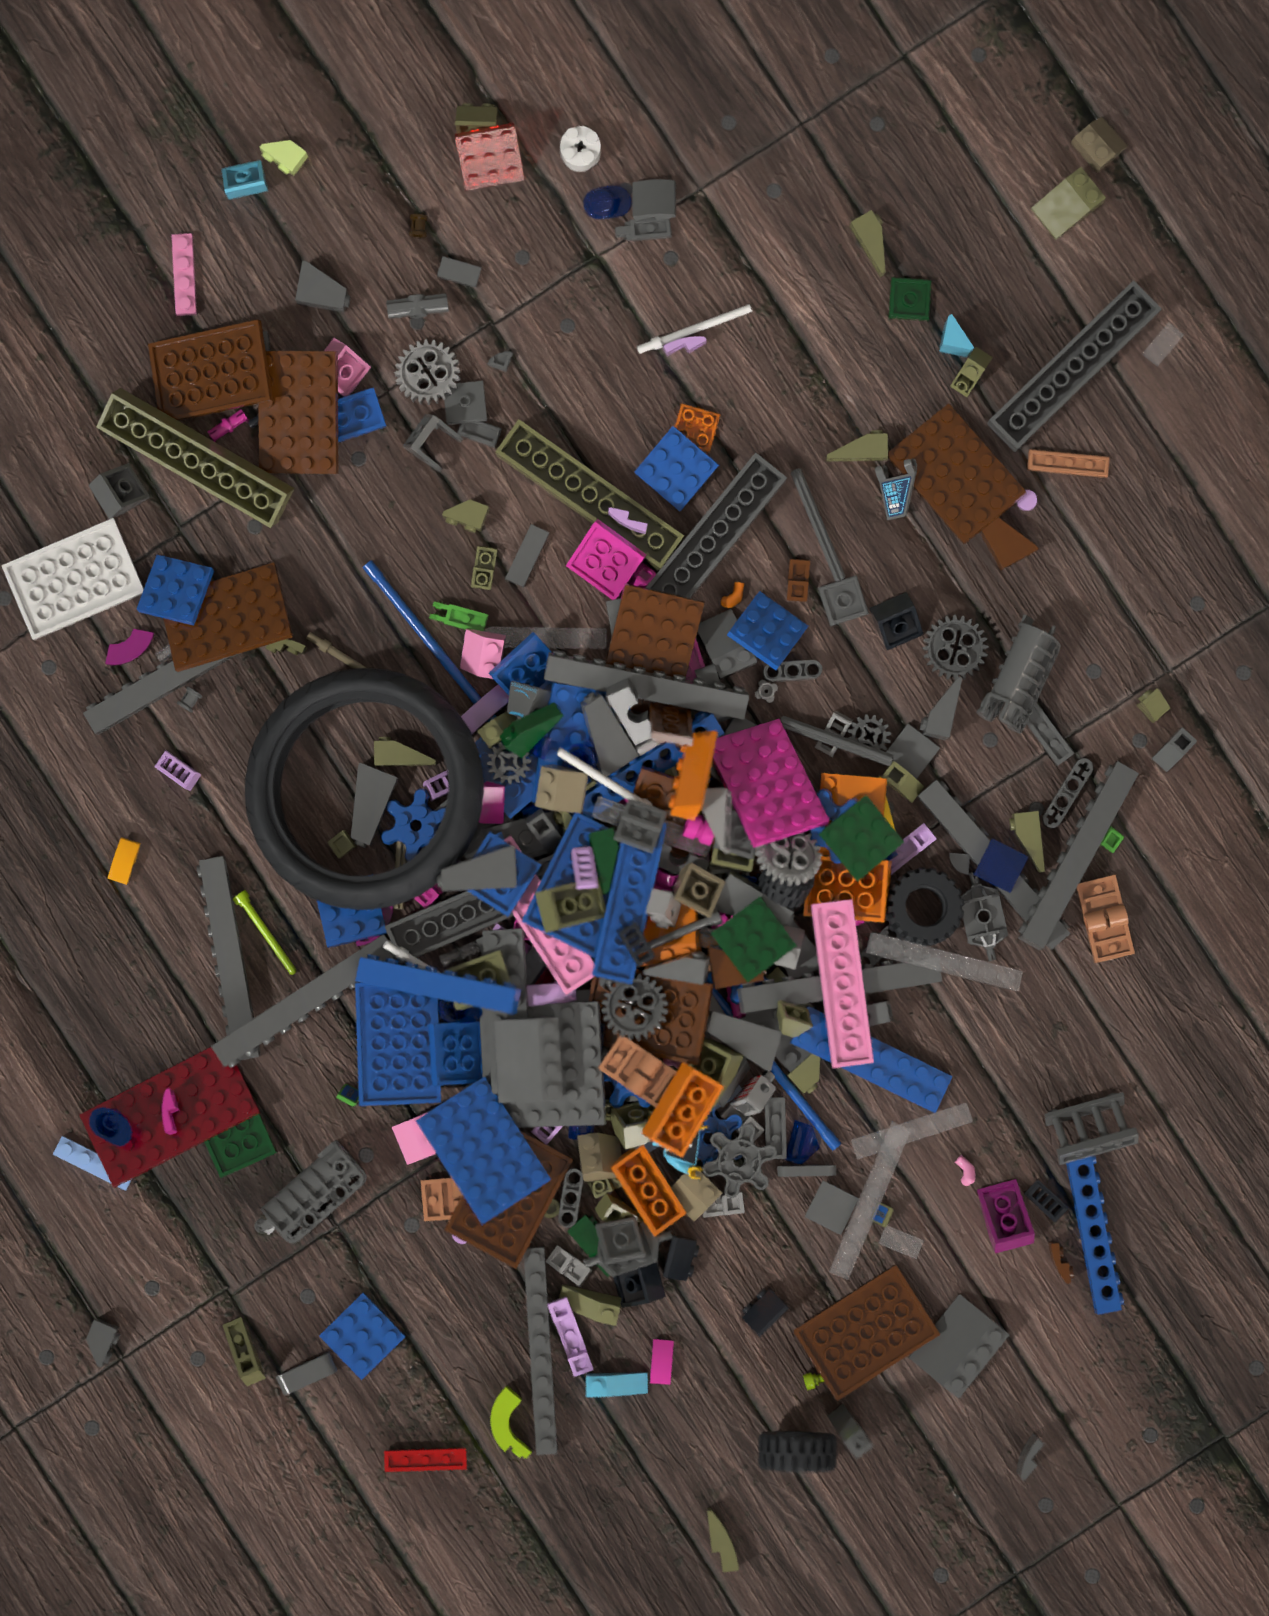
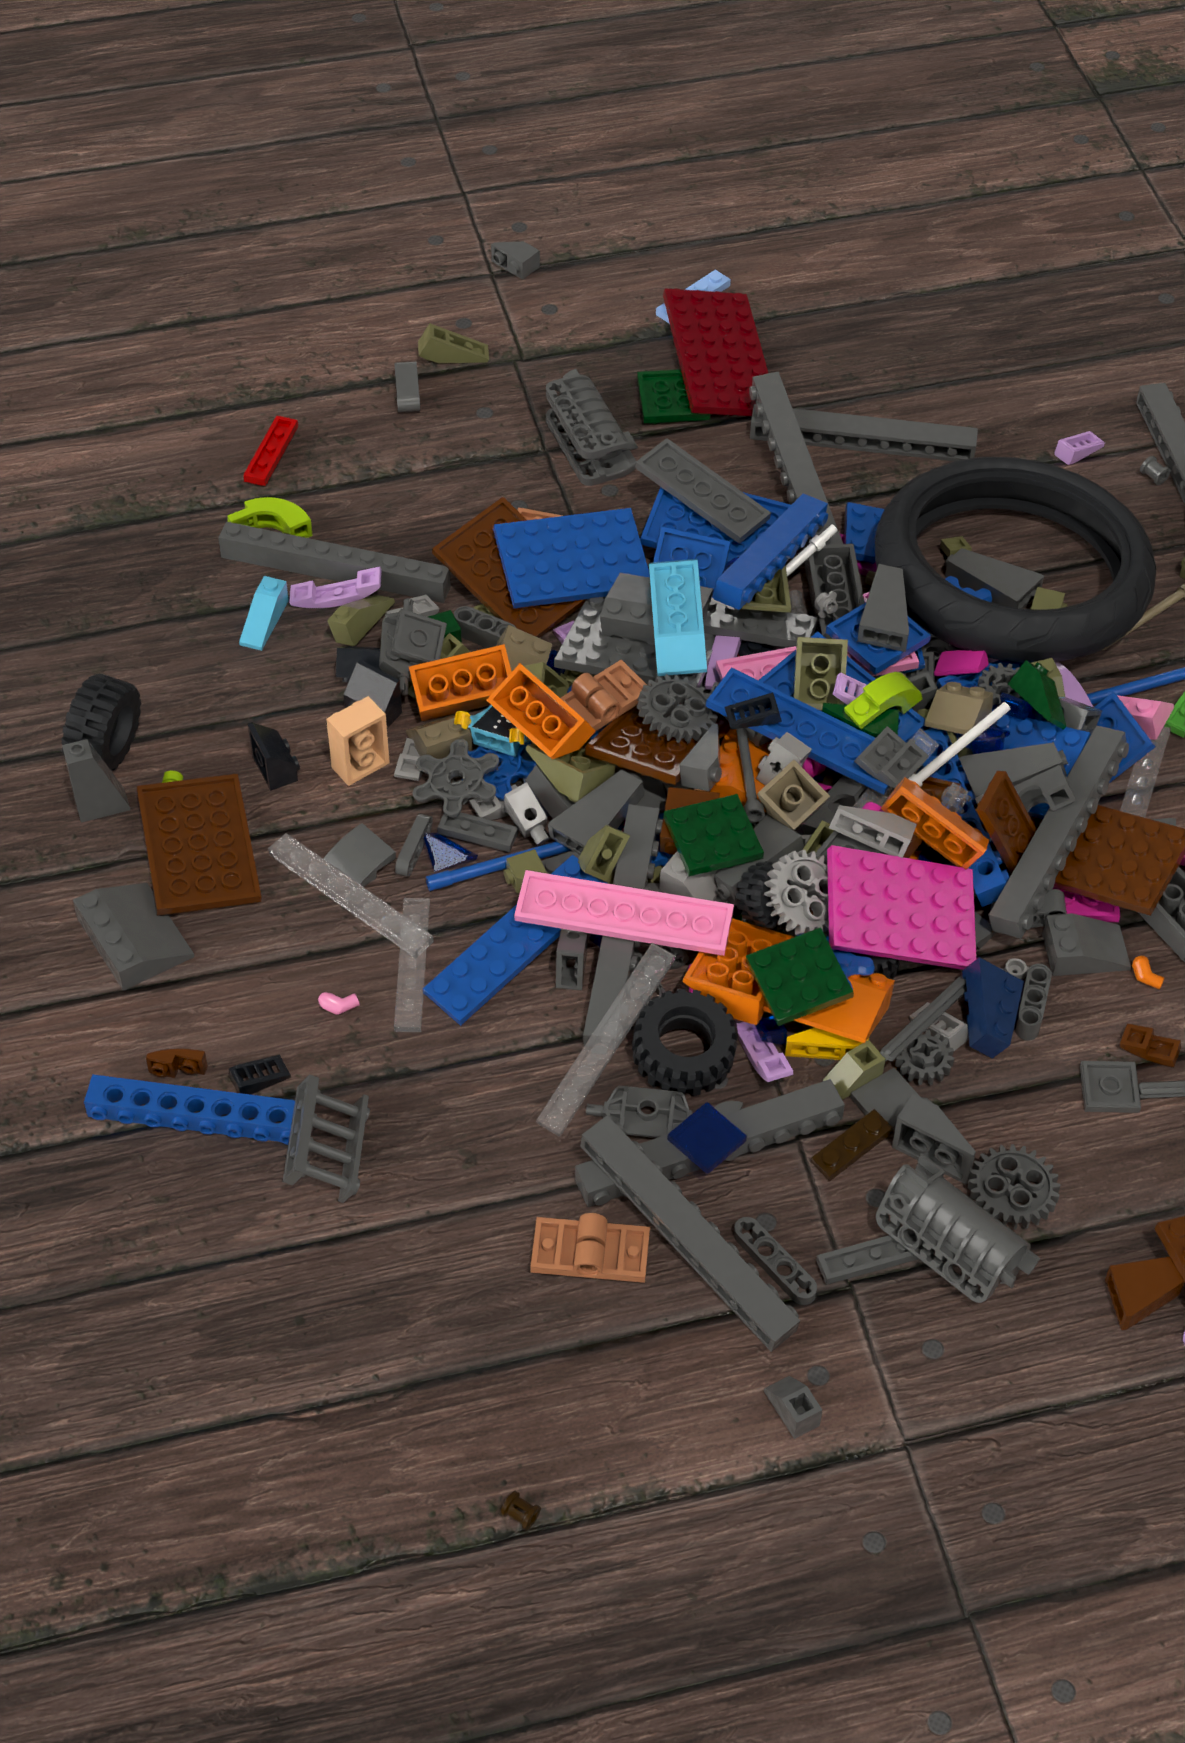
camera: 110 degrees right, 35 degrees down
(110, 1125) = (730, 296): clear blue piece -> none
(124, 860) = (998, 384): light orange slope -> none
(168, 1107) = (727, 339): dark pink slope -> none
(243, 900) = (921, 459): lime piece -> none
(362, 1336) = (423, 439): blue plate -> none
(375, 1067) = (703, 490): none -> dark grey plate
(470, 926) = (826, 604): none -> light grey plate
(541, 1039) = (677, 617): none -> medium azure slope
(585, 844) = (882, 694): none -> lime arch
(659, 769) = (955, 798): none -> clear plate
(661, 1362) = (269, 659): dark pink slope -> none
(722, 1542) = (44, 655): olive slope -> none
(738, 1248) = (358, 740): none -> light nougat brick
(767, 630) = (1093, 985): blue plate -> none
(814, 697) = (993, 1006): none -> dark blue wedge
(883, 1215) = (325, 904): slope -> none
(896, 621) = (1068, 1130): black slope -> none
(901, 1241) = (285, 914): clear tile -> none
(959, 767) = (852, 1145): none -> dark brown plate
(1006, 1216) = (261, 1022): magenta slope -> none
(1028, 833) = (732, 1194): olive slope -> none
(1111, 840) = (695, 1292): bright green slope -> none
(1153, 704) = (865, 1392): olive slope -> none

